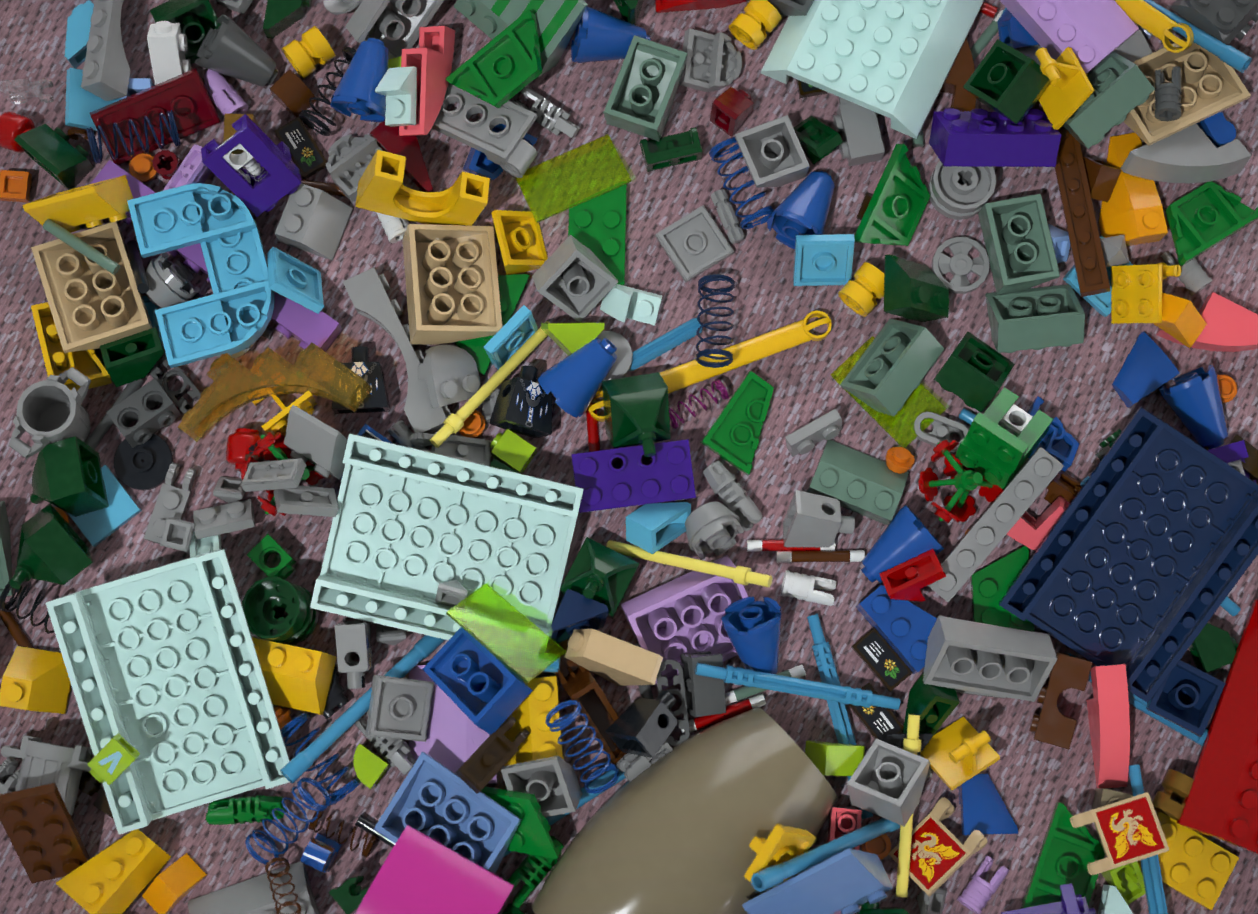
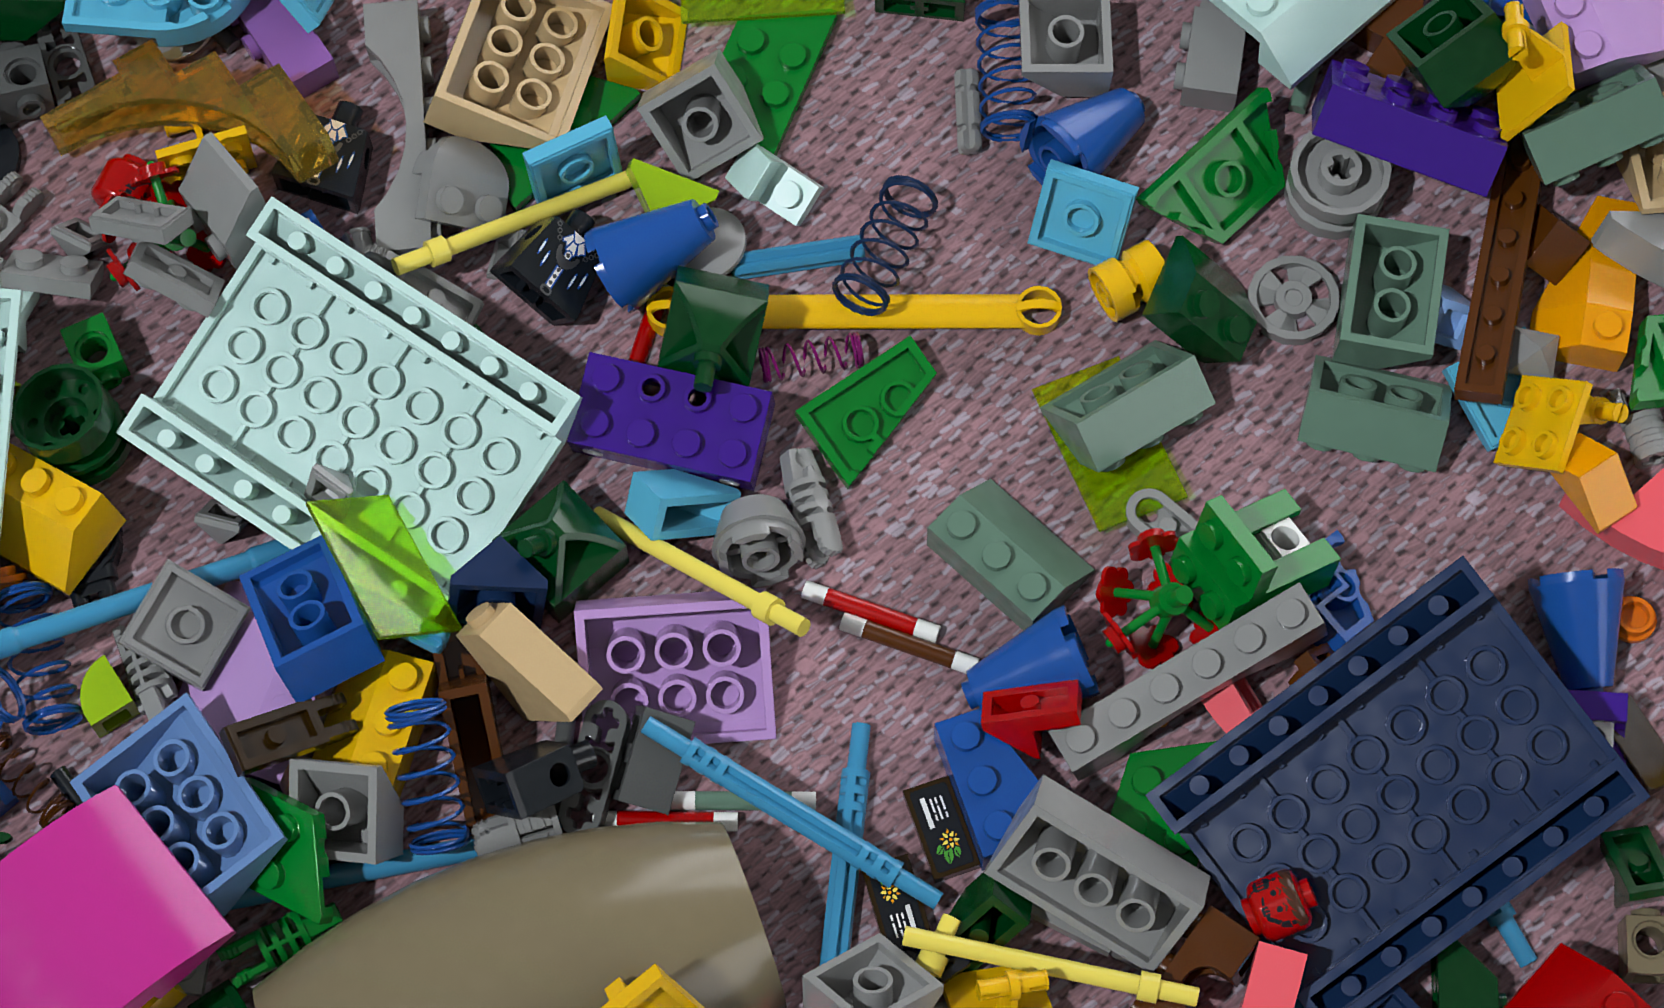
camera: 25 degrees right, 10 degrees down
(354, 637) = (157, 503): light grey torso -> none
(473, 425) = (468, 270): orange plate -> none
(512, 451) = (511, 324): lime brick -> none
(694, 243) = (903, 133): light grey tile -> none
(755, 632) = (757, 709): blue cone -> none
(802, 586) = (867, 677): white hinge -> none
(805, 438) = (970, 459): light grey plate -> none
(814, 521) = (917, 582): light grey torso -> none
(816, 139) = (1143, 48): dark green slope -> none
(835, 758) = (804, 940): lime slope -> none
(899, 460) = (1085, 544): orange plate -> none
(974, 372) = (1250, 454): dark green slope -> none
(1039, 715) = (1146, 986): none -> light yellow bar
(1095, 638) = (1279, 905): none -> red head
(1143, 371) = (1519, 548): blue slope -> none

